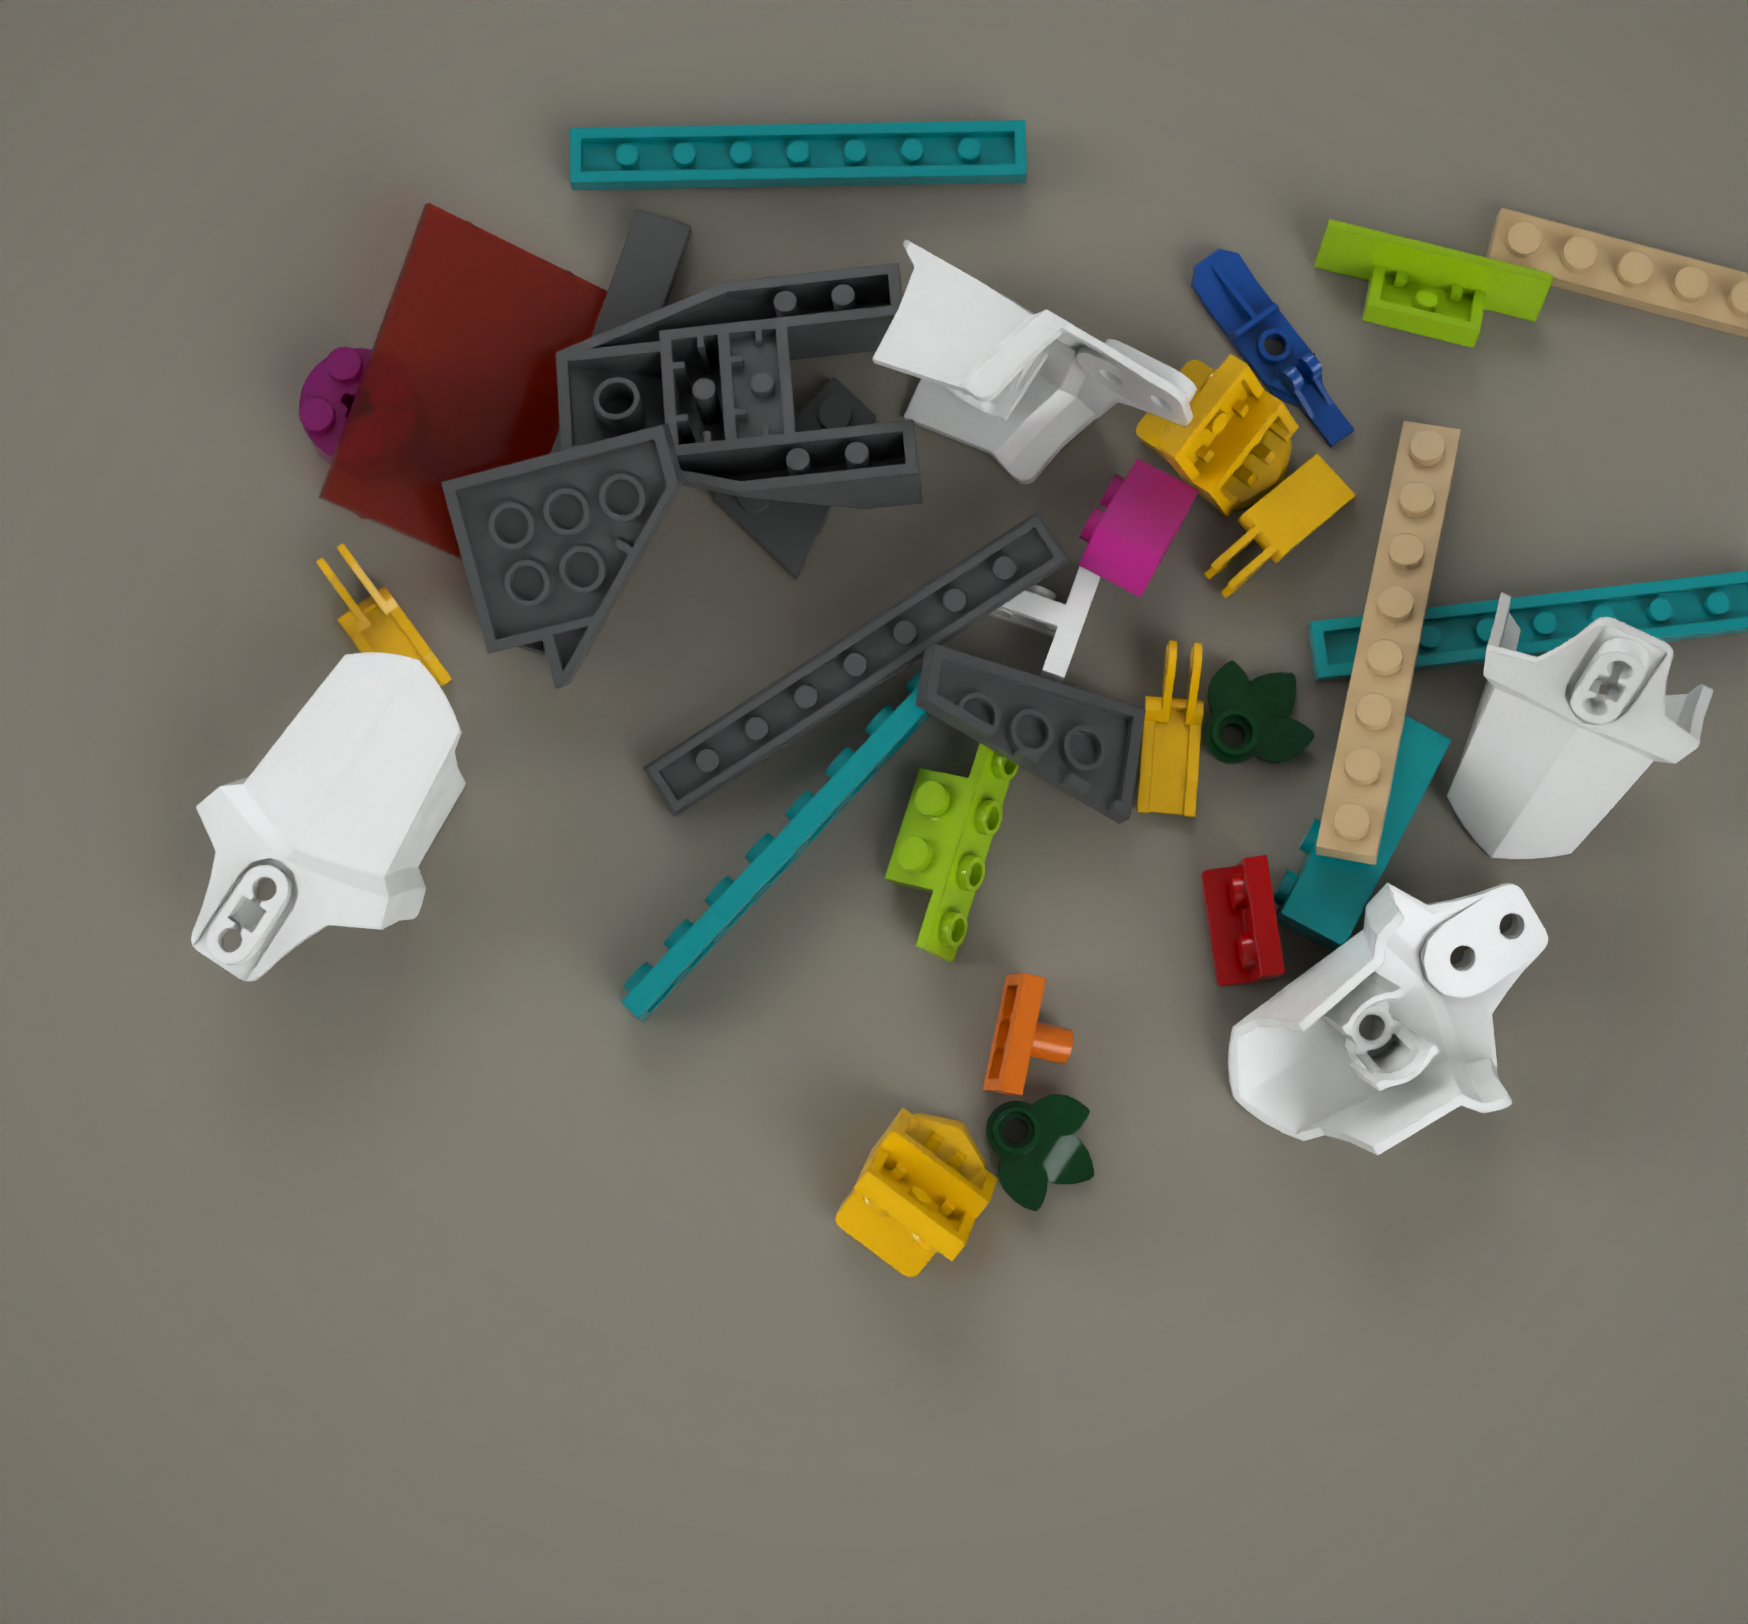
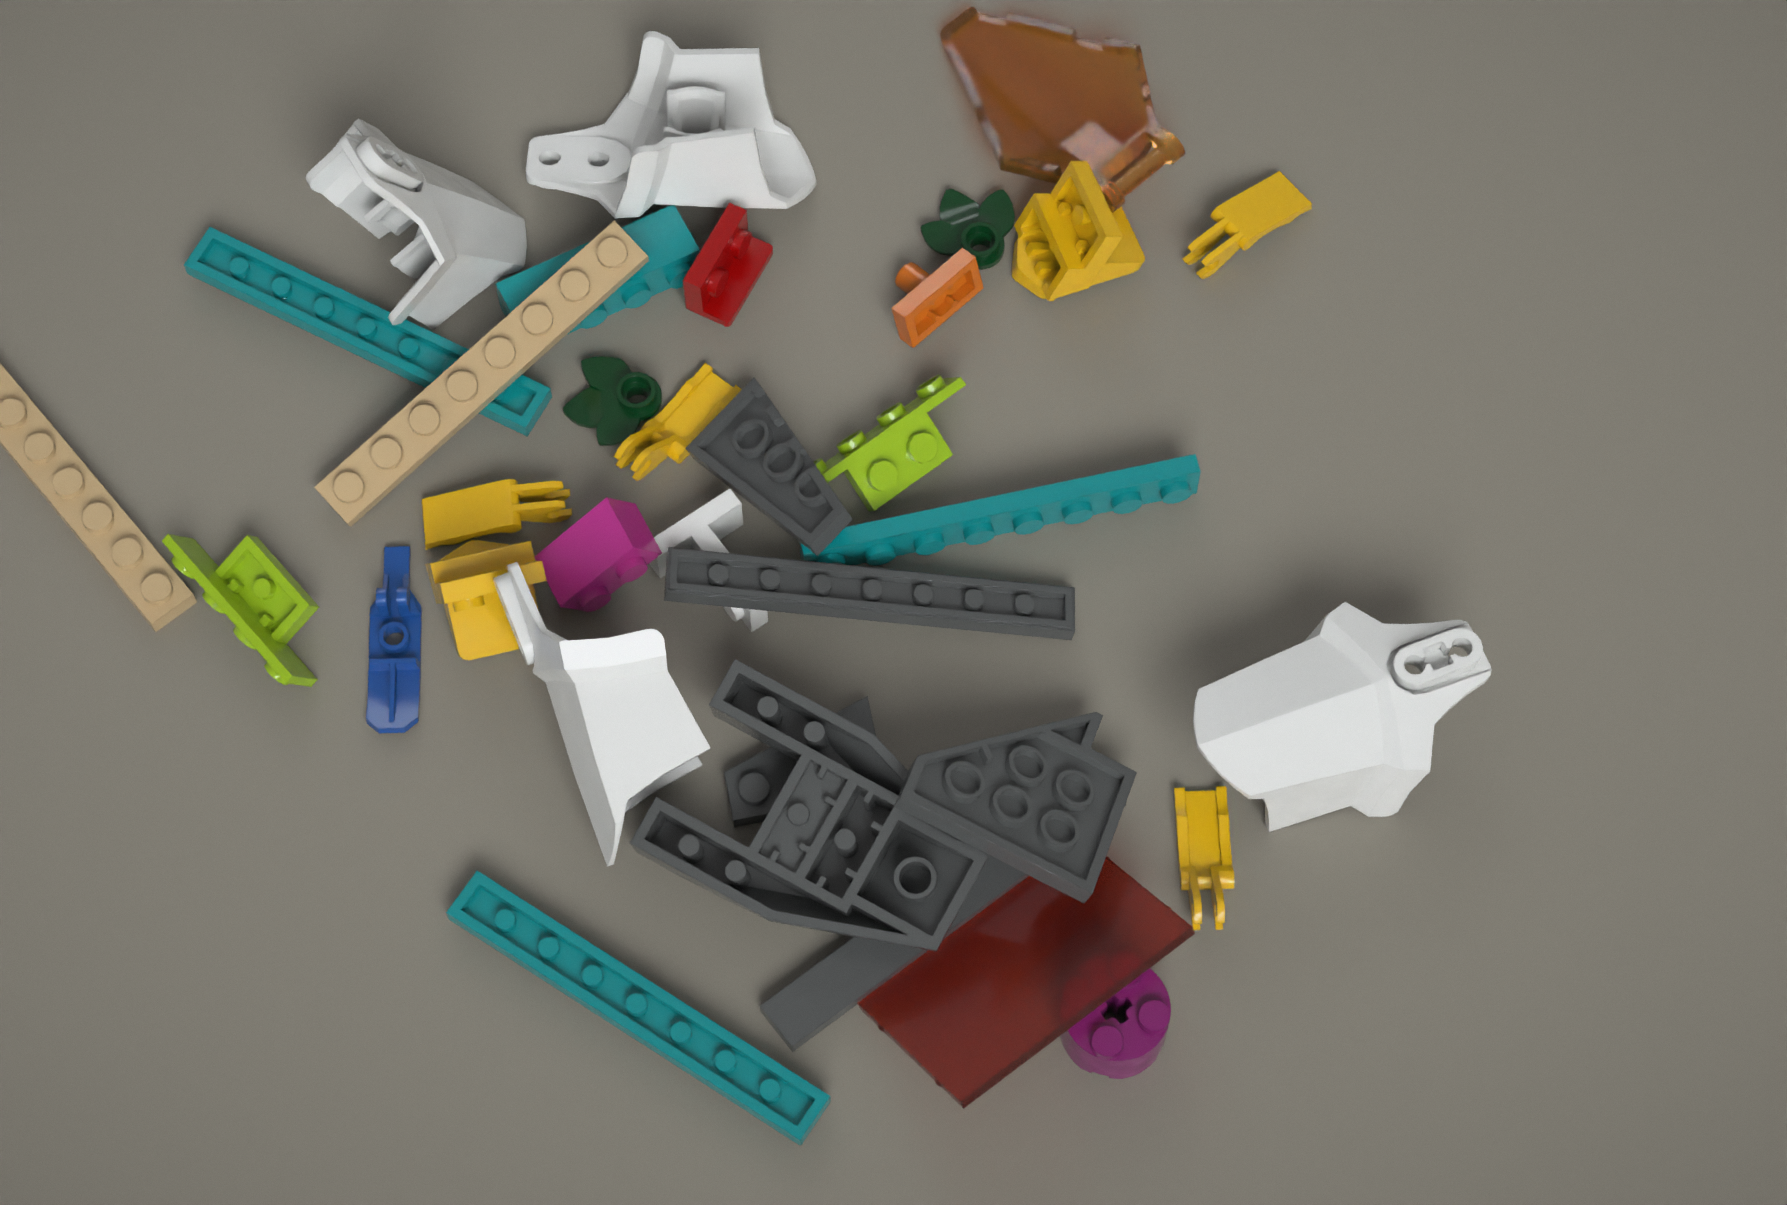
camera: 145 degrees left, 15 degrees down
(759, 1355) = (1246, 220): none -> yellow arm
(1046, 1345) = (1059, 100): none -> clear orange windscreen

